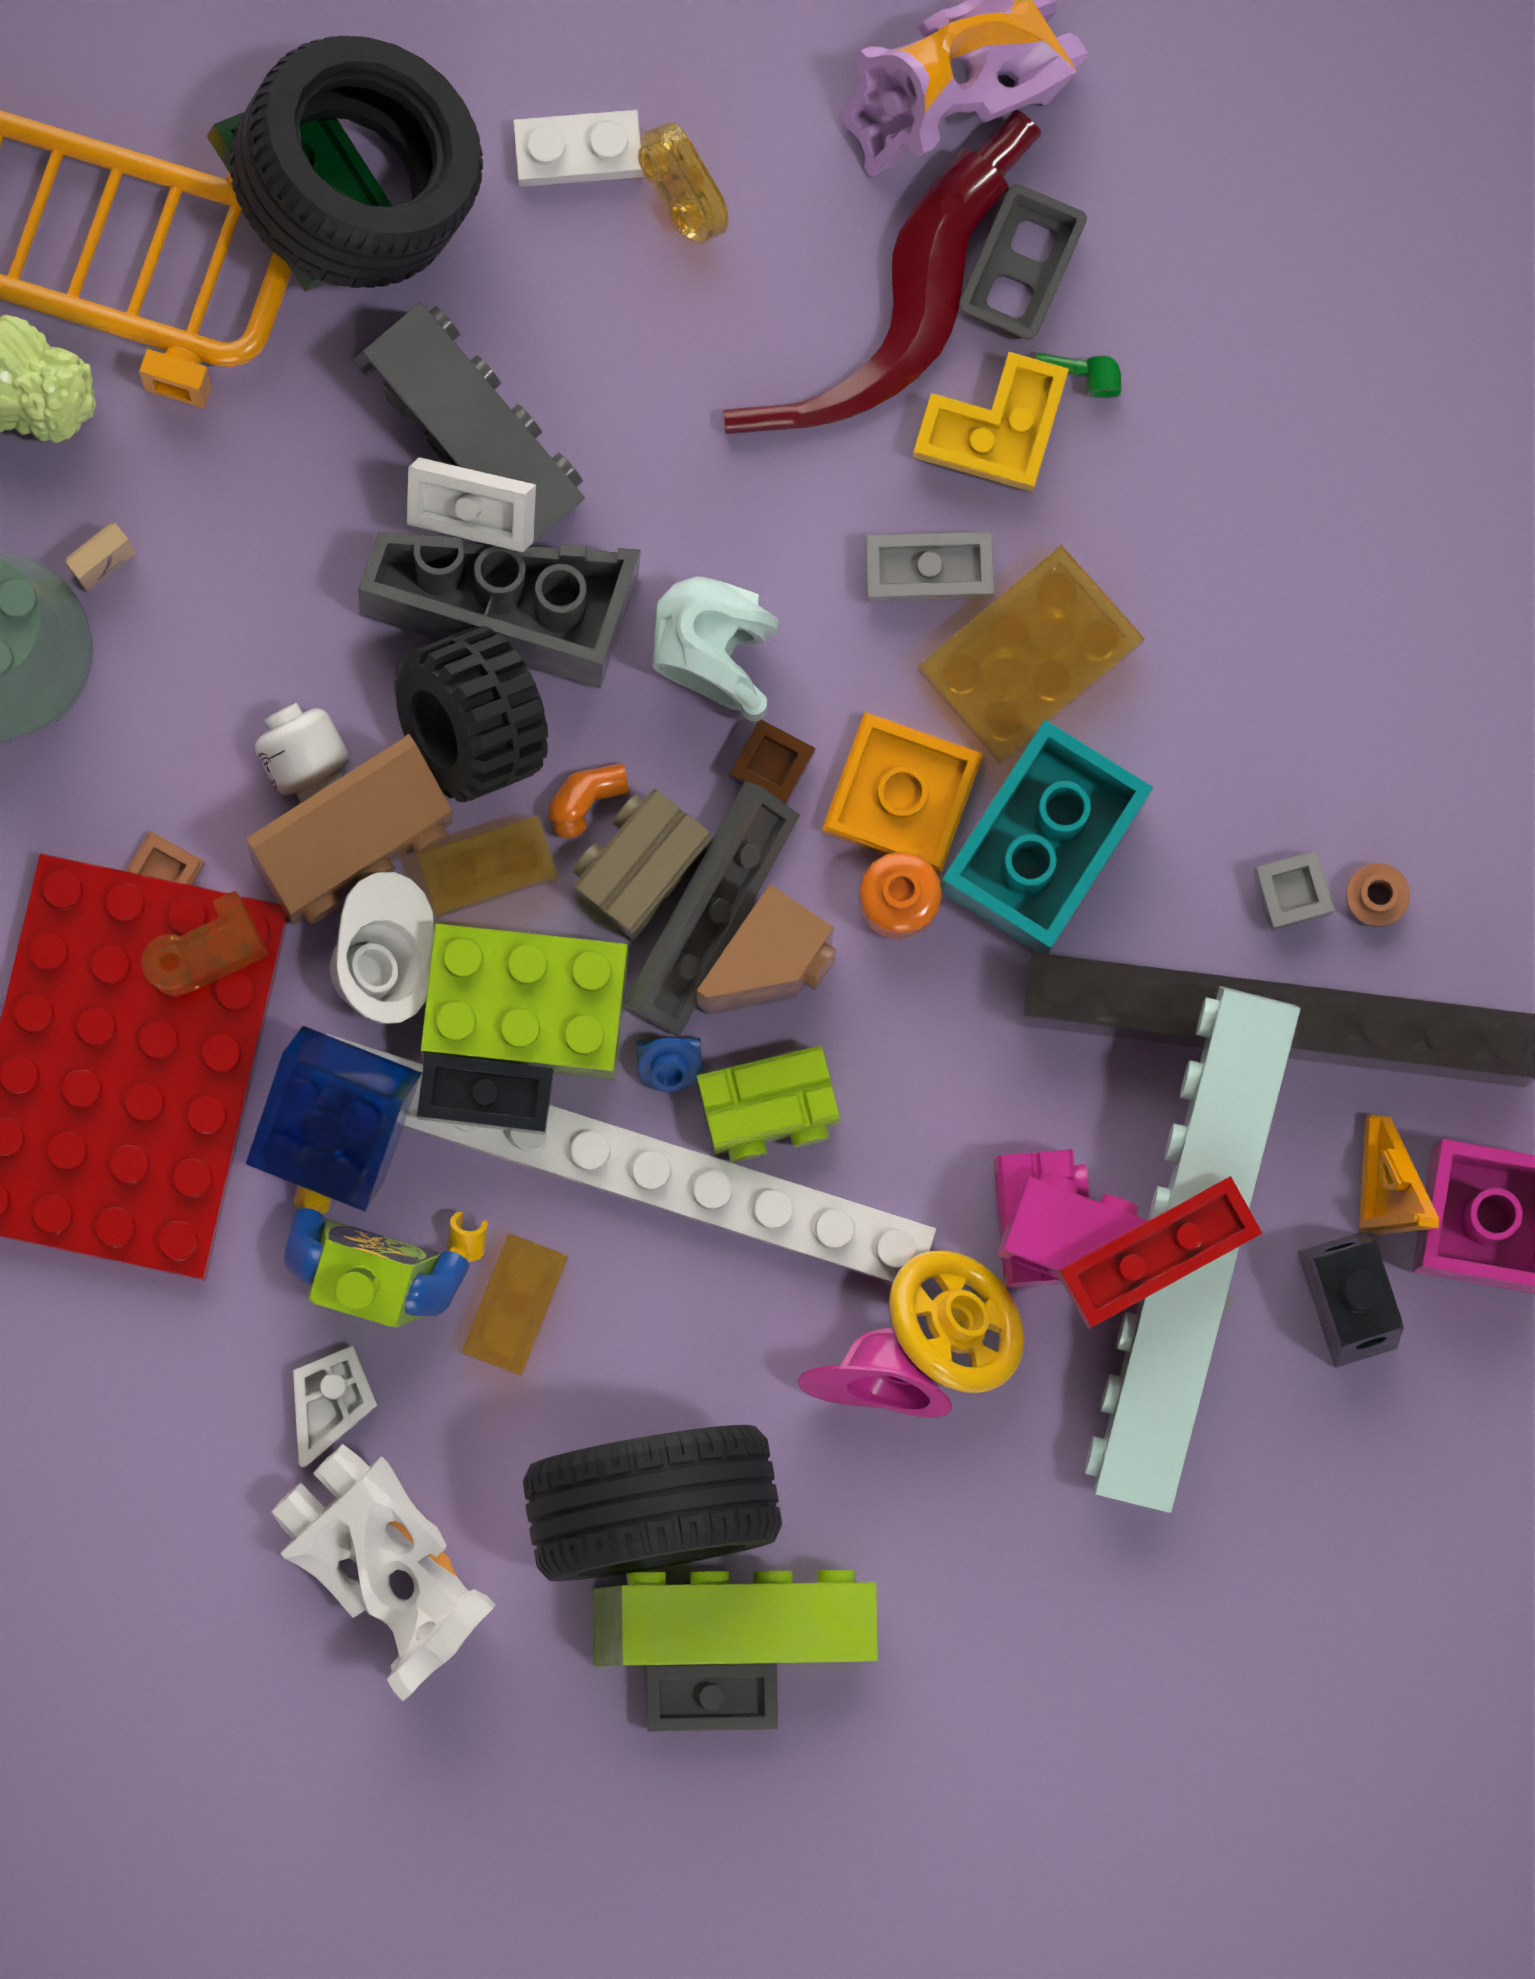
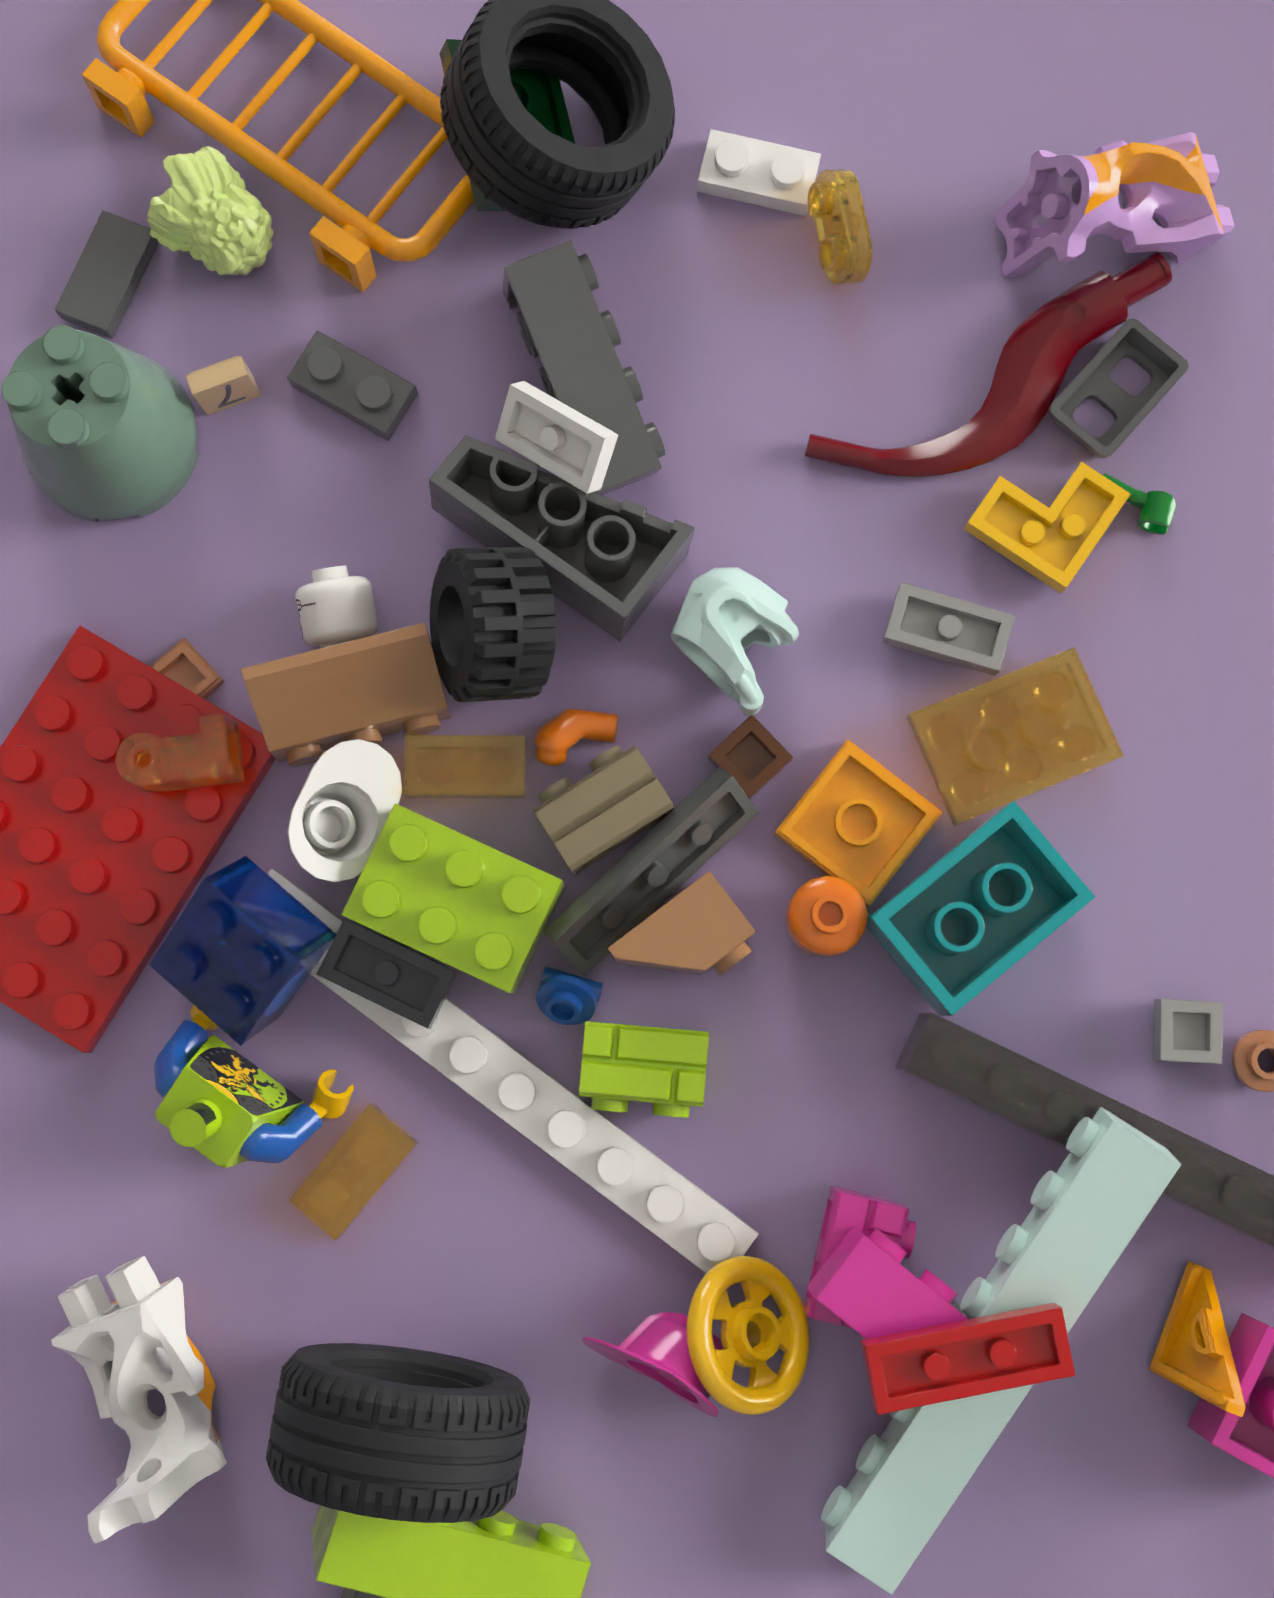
camera: 25 degrees right, 0 degrees up
(230, 512) = (352, 385): none -> dark grey plate
(329, 1402) = (156, 1203): white piece -> none
(1352, 1298) = (1129, 1439): black torso -> none

